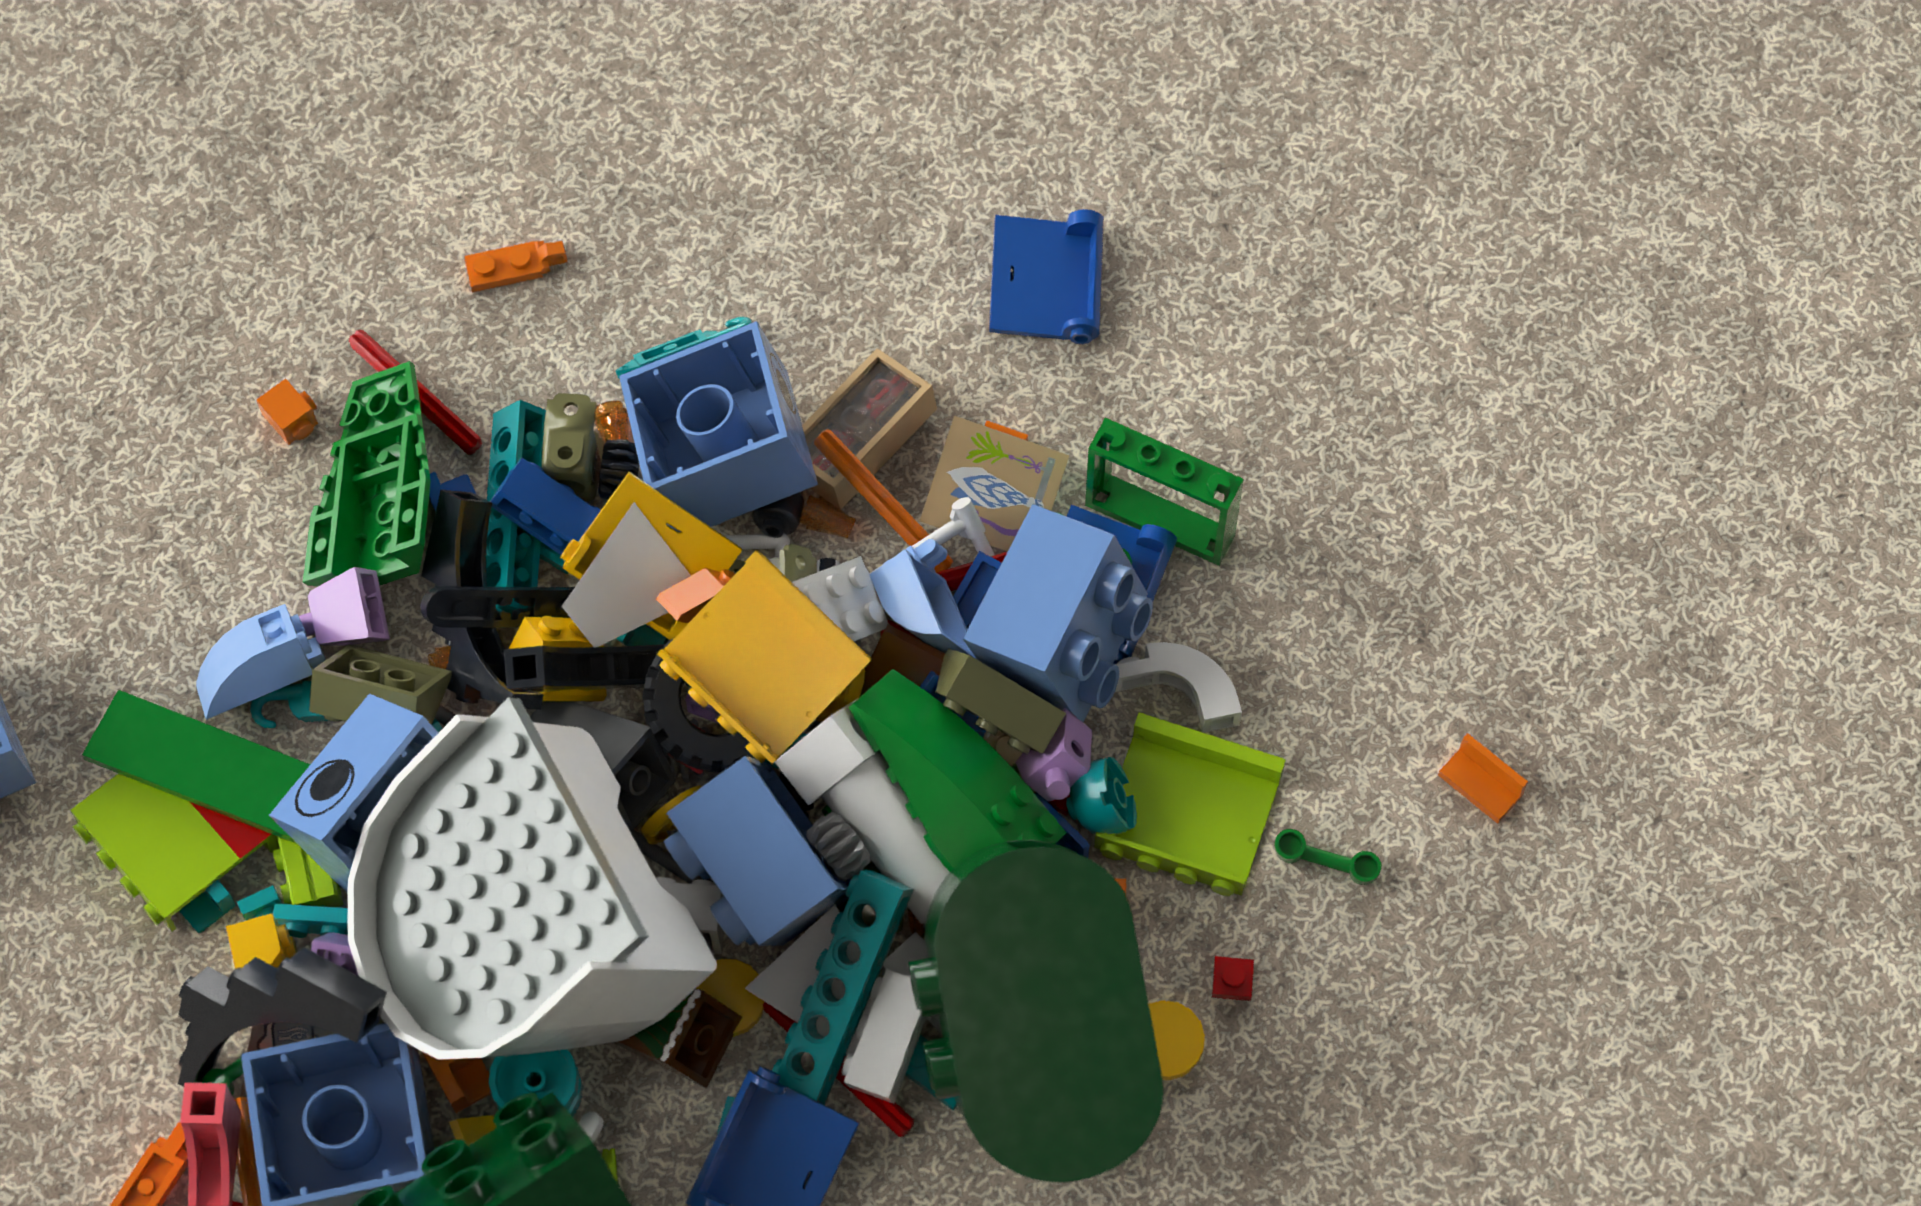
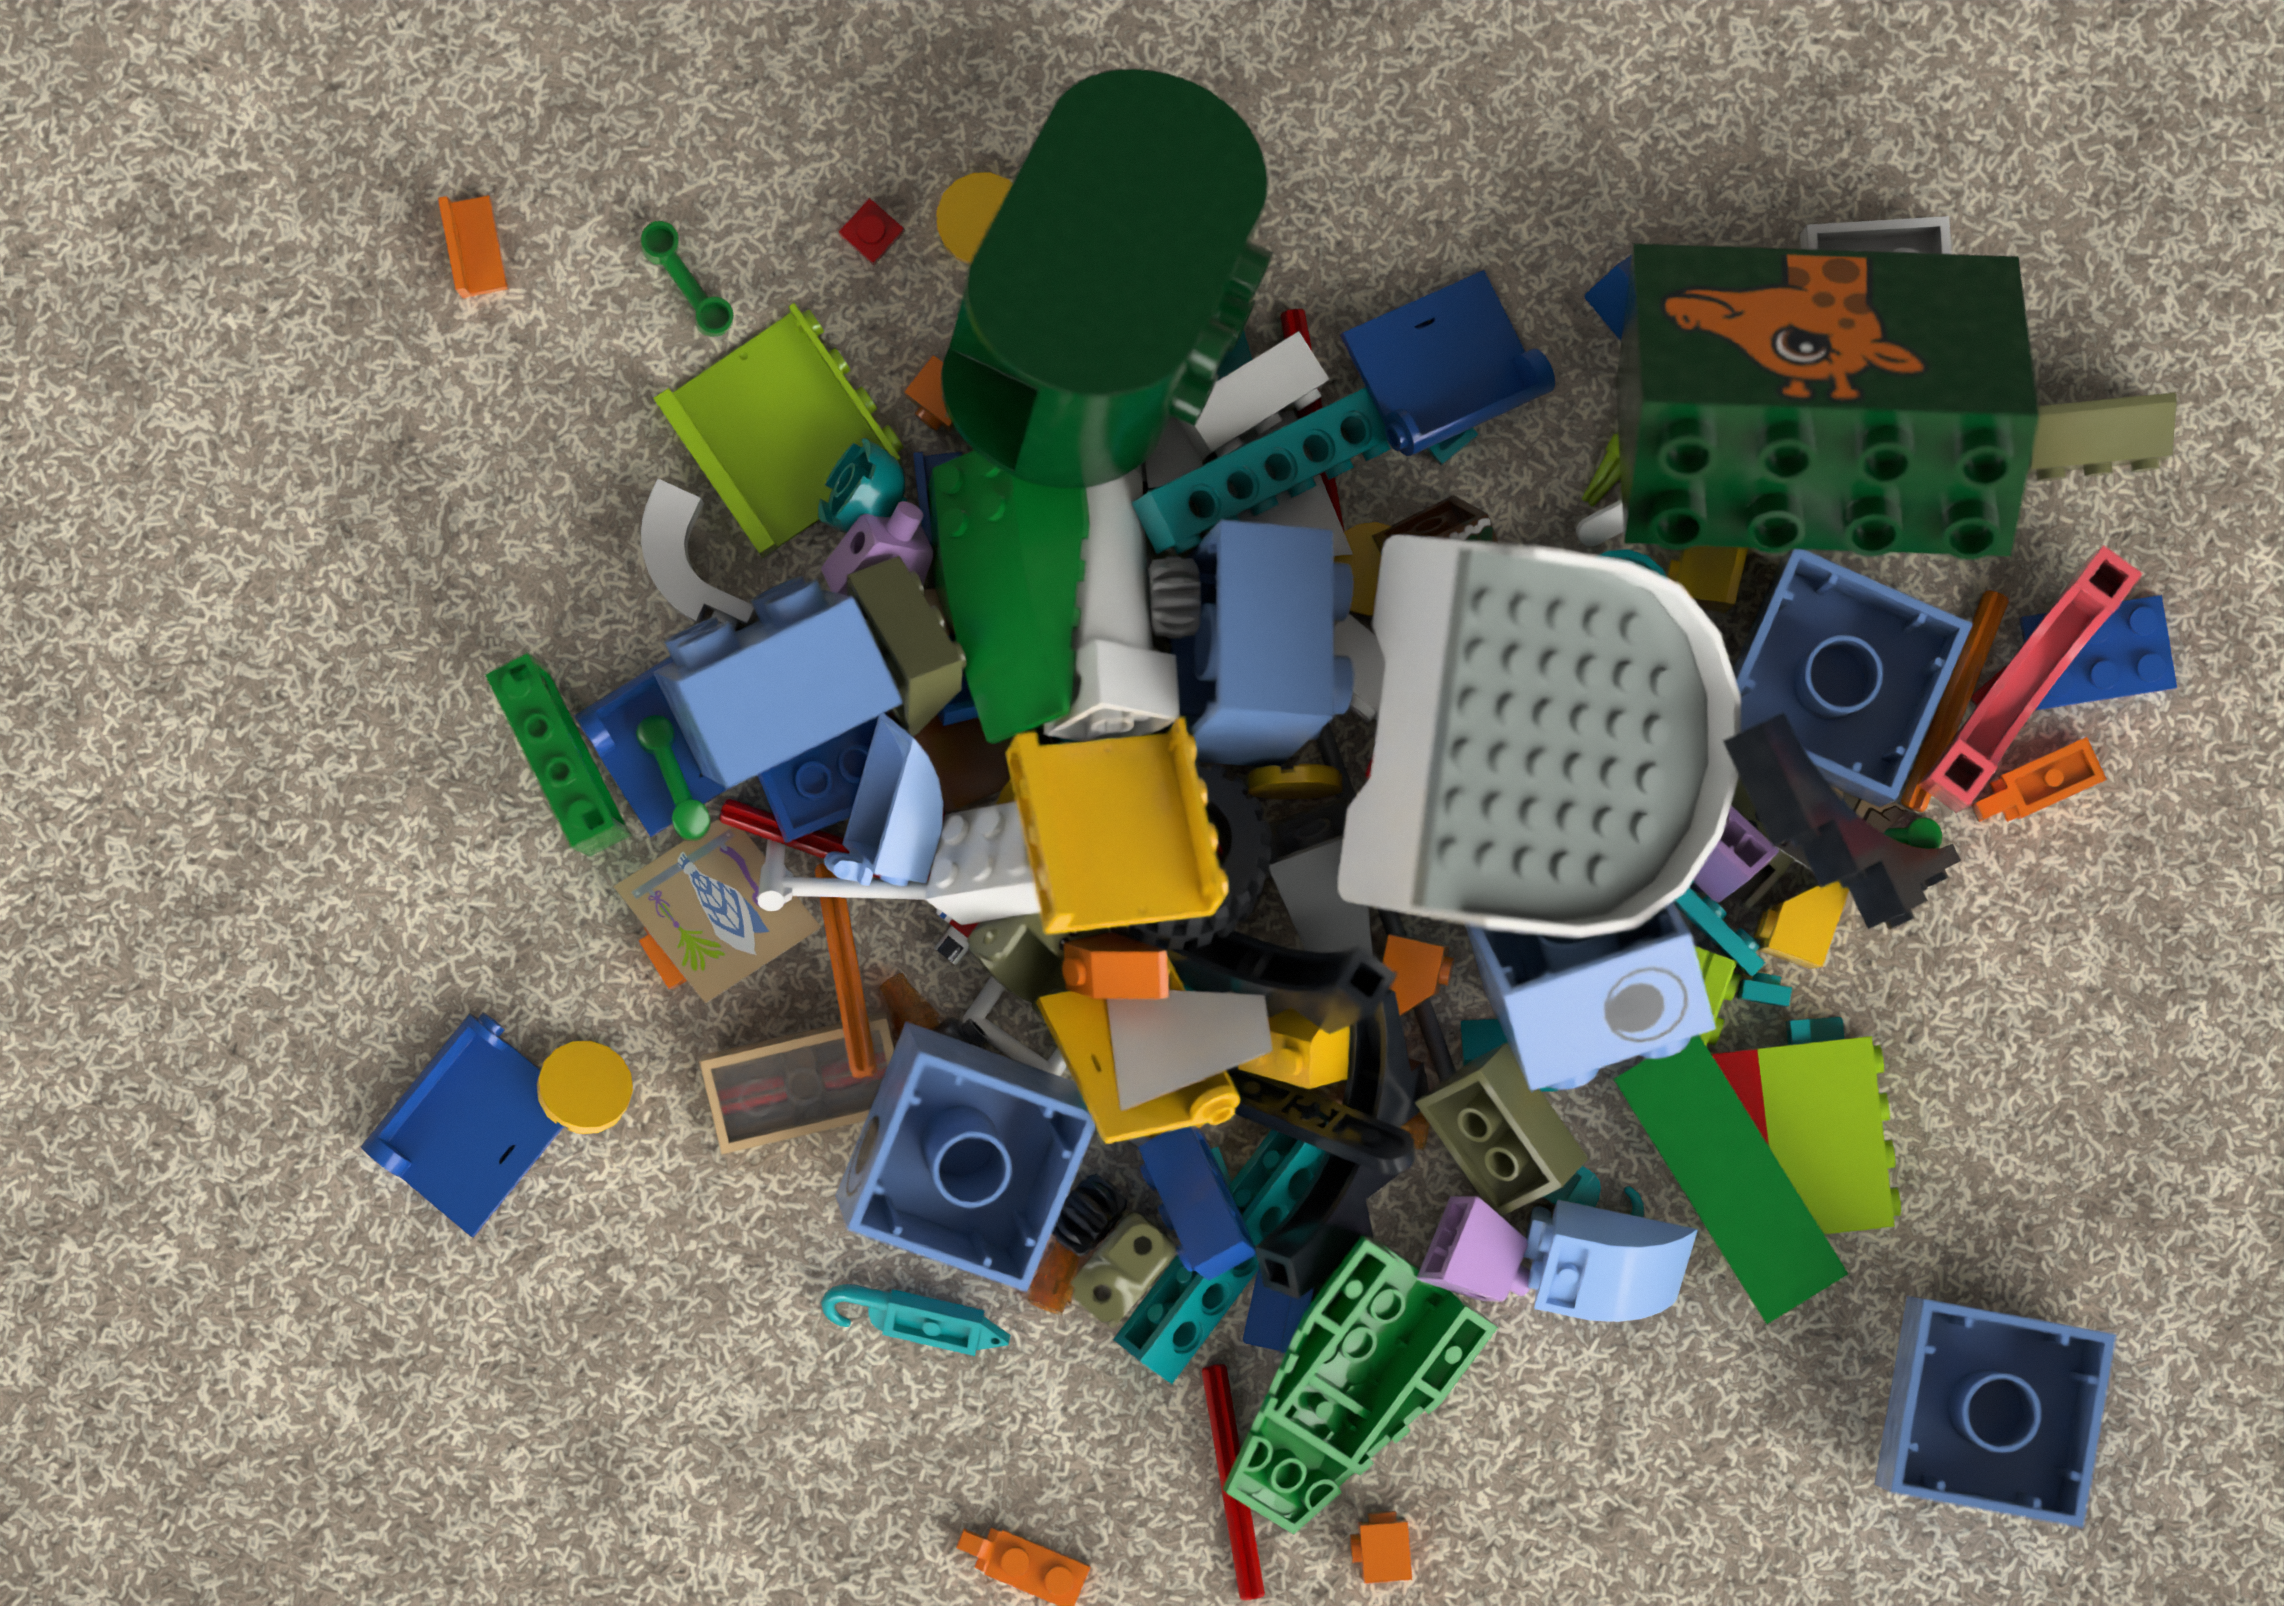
camera: 145 degrees left, 20 degrees up
(994, 338) = (584, 1087): none -> yellow tile

